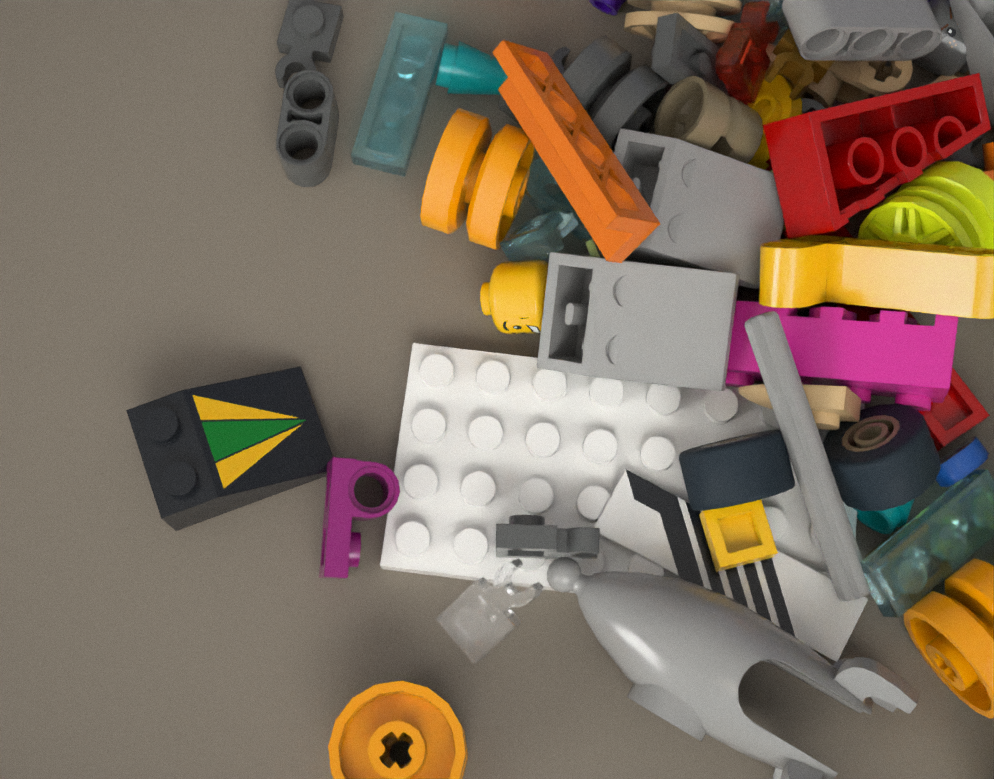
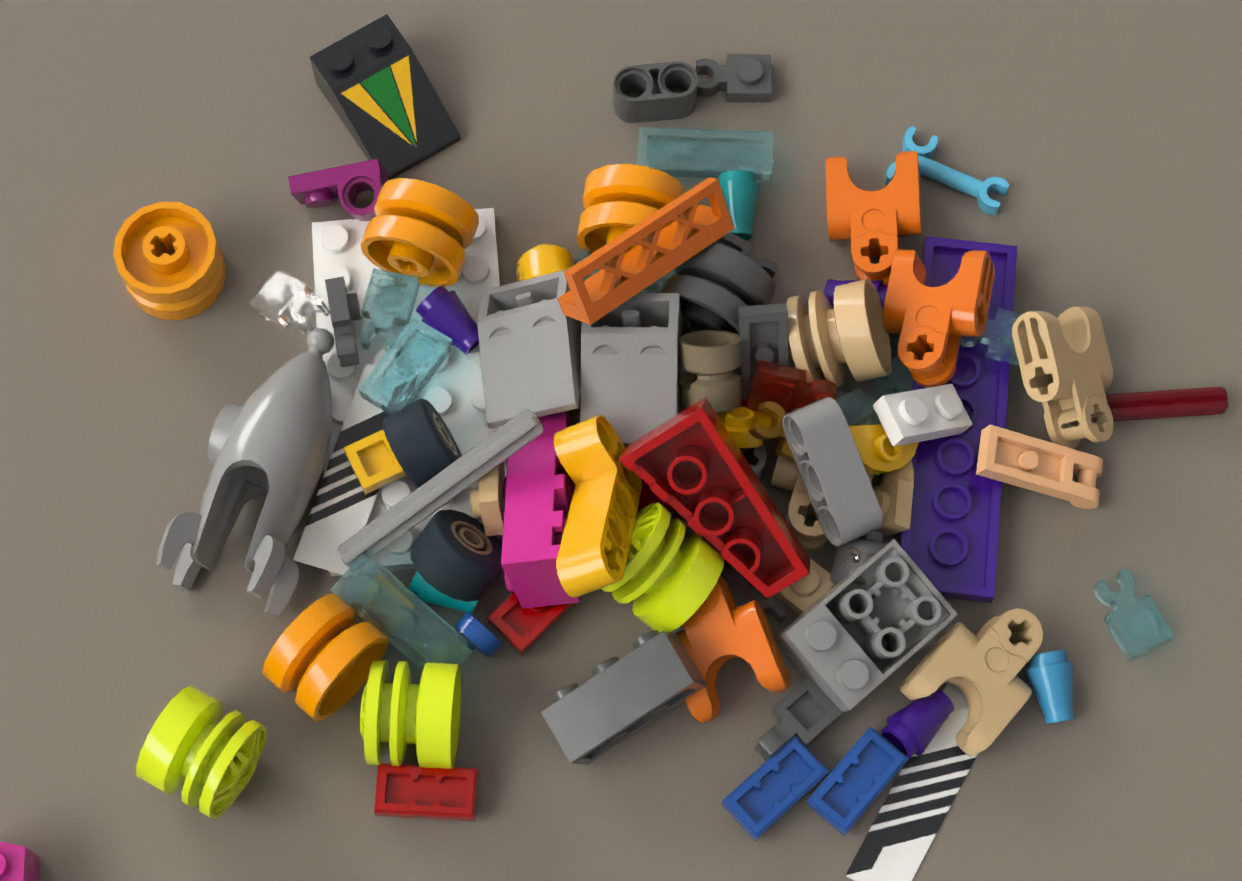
camera: 75 degrees right, 5 degrees down
(458, 417) = (420, 231): none -> light orange wheel
(528, 481) = (387, 302): none -> clear light blue plate
(564, 414) = (449, 316): none -> dark purple cone
(621, 476) = (406, 367): none -> clear light blue plate

